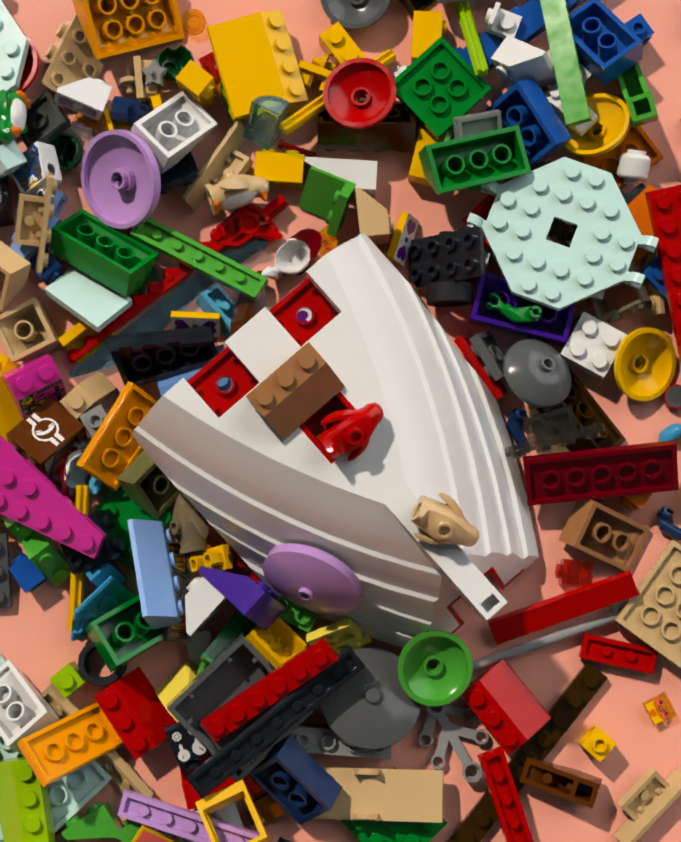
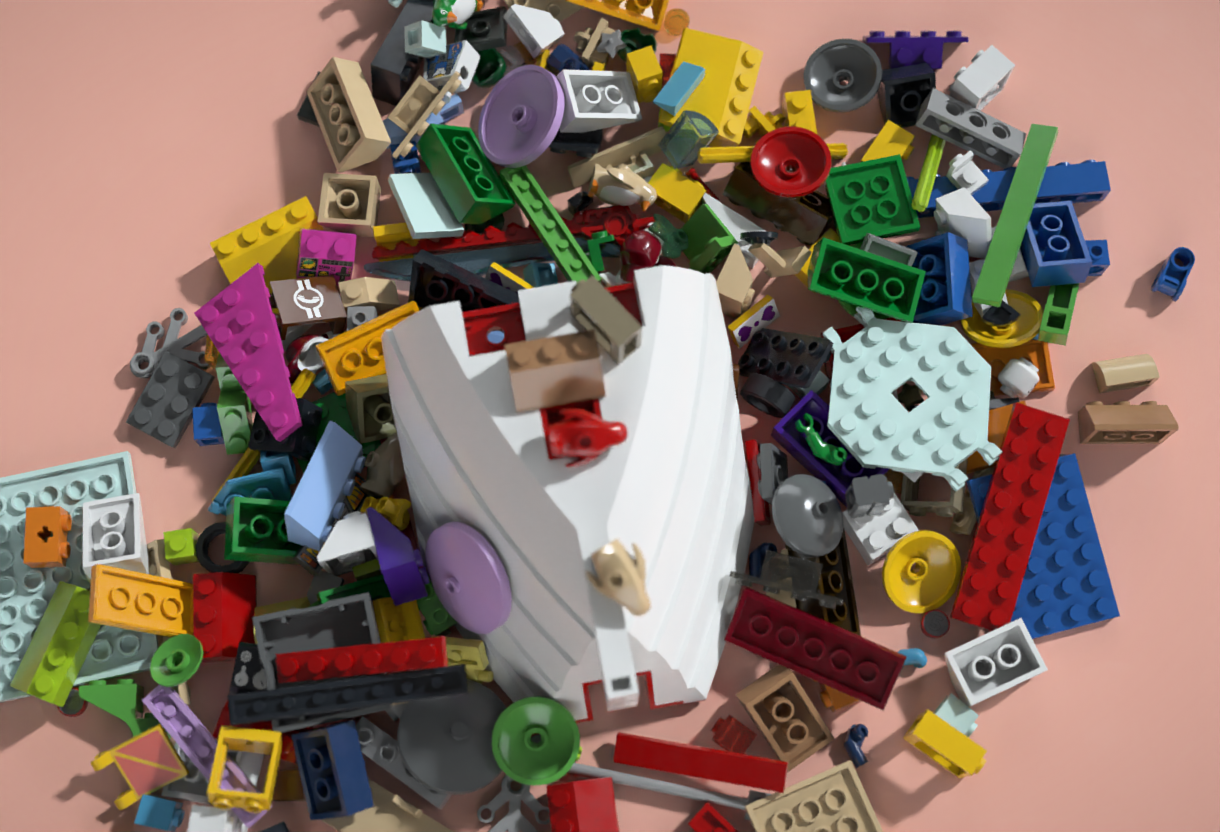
camera: 25 degrees right, 10 degrees down
(116, 768) = (176, 660): none -> bright green dish
(207, 221) = (579, 202): none -> black tile
(223, 612) = (367, 570): none -> lime tile
(234, 81) = (679, 87): none -> medium azure slope
(247, 259) = (594, 253): none -> green bracket
(284, 237) = (638, 252): none -> dark red hair
(300, 208) = (674, 238): none -> clear green plate
(310, 326) = (598, 310): none -> dark tan window
(397, 178) = (777, 263): none -> tan piece
(577, 332) = (868, 495): none -> dark grey brick
(595, 126) = (1000, 315): none -> black tile

